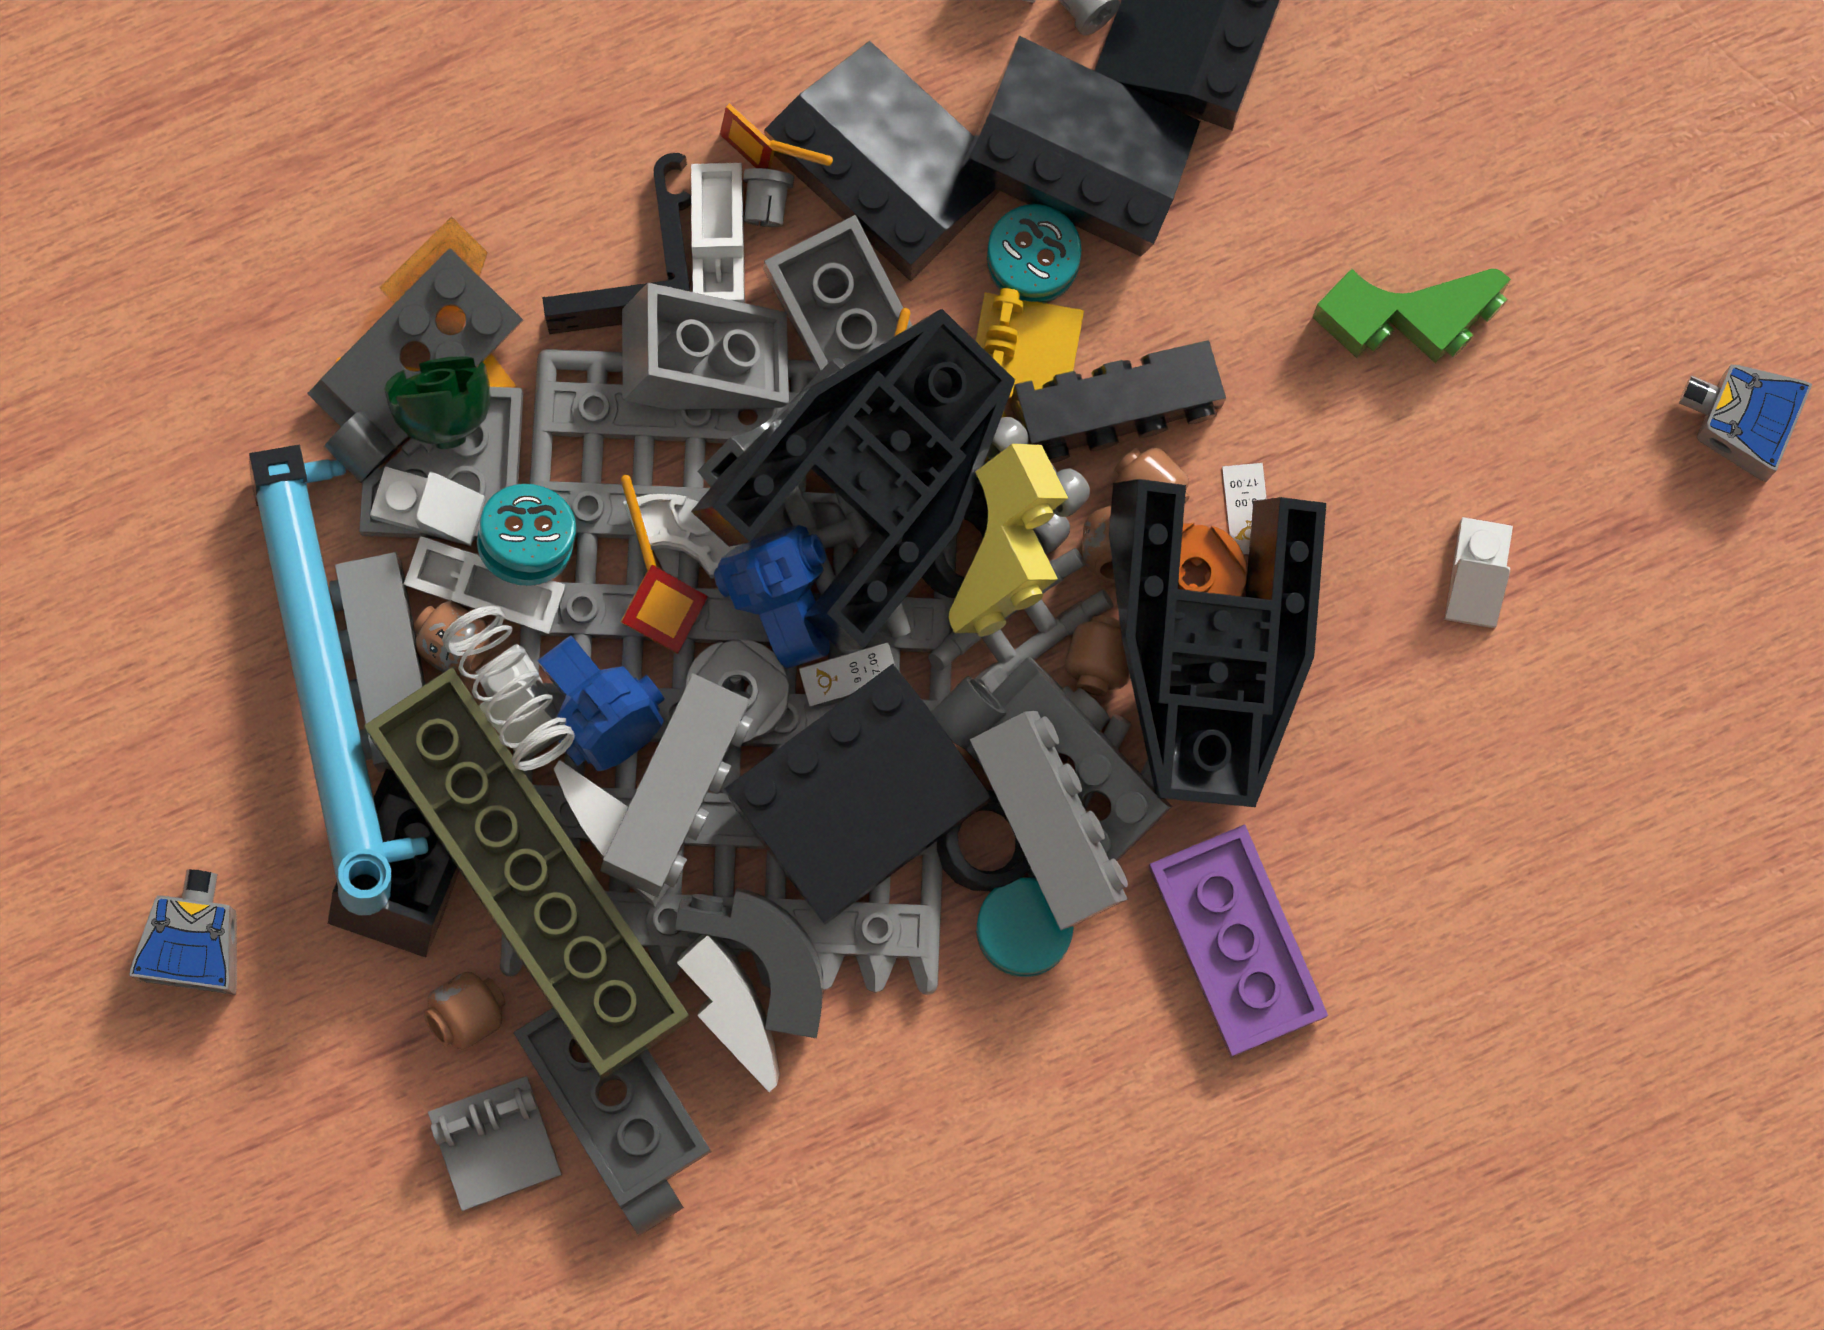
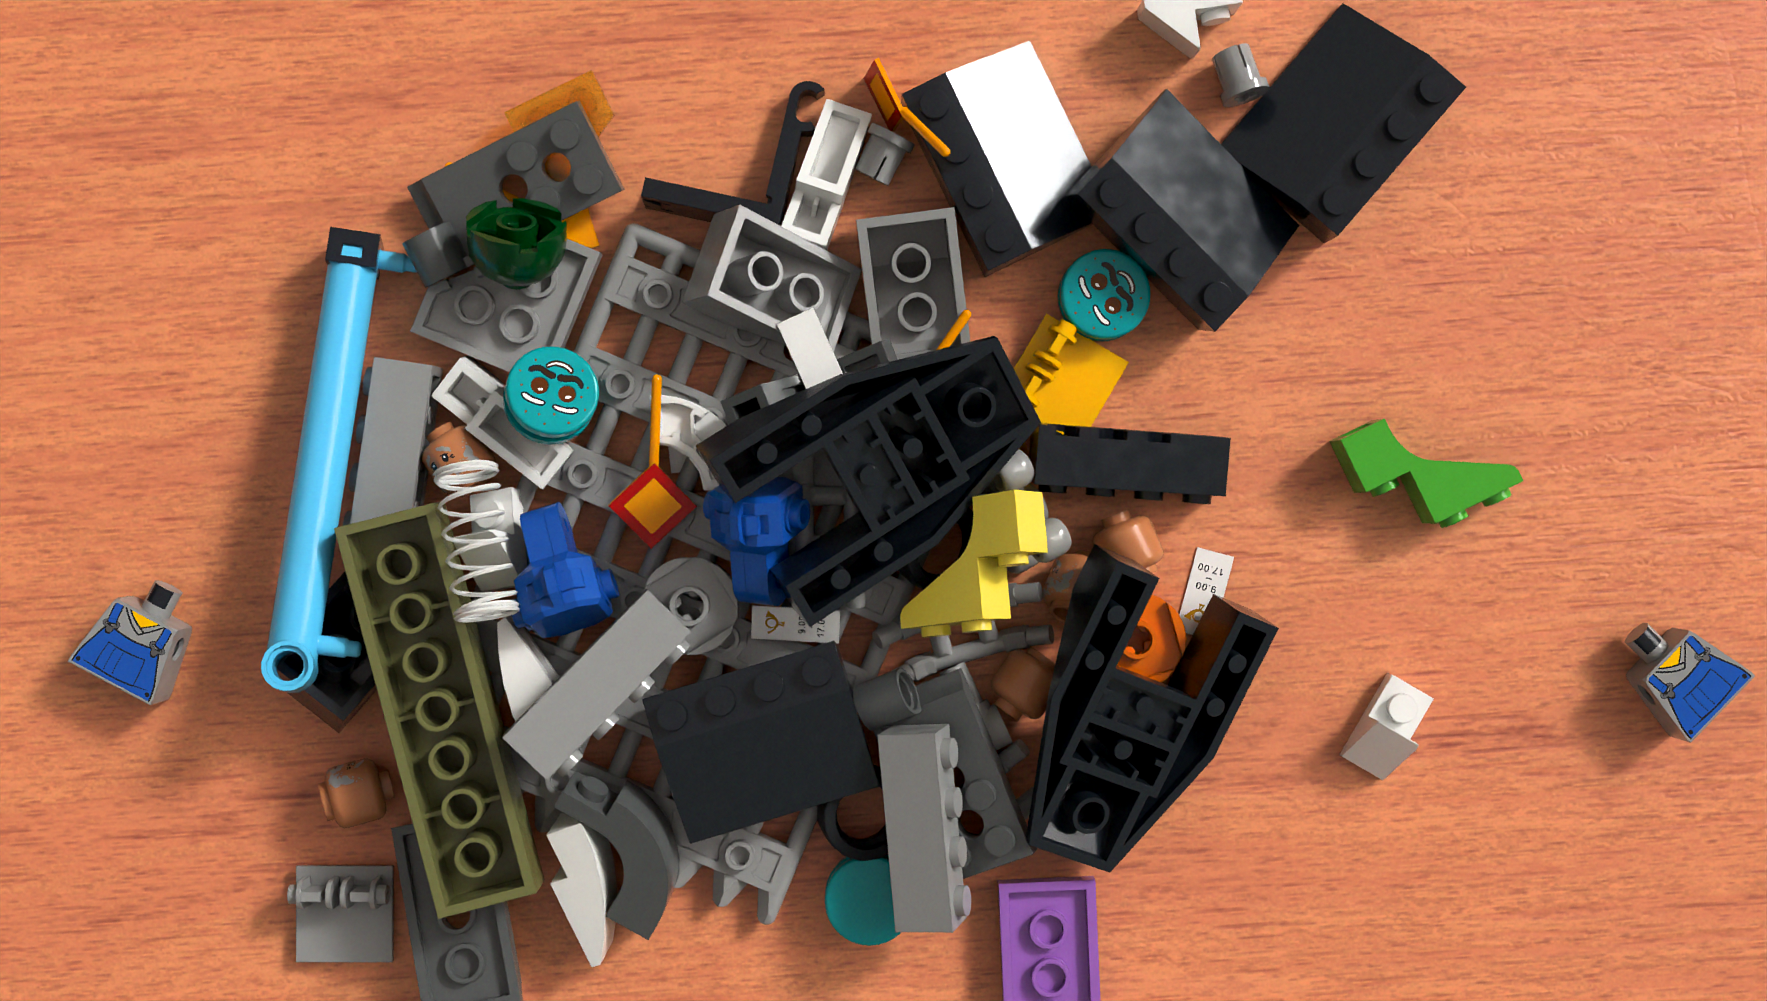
camera: 25 degrees right, 10 degrees up
(428, 505) = (476, 332): white slope -> none
(760, 391) = (809, 348): none -> white sticker

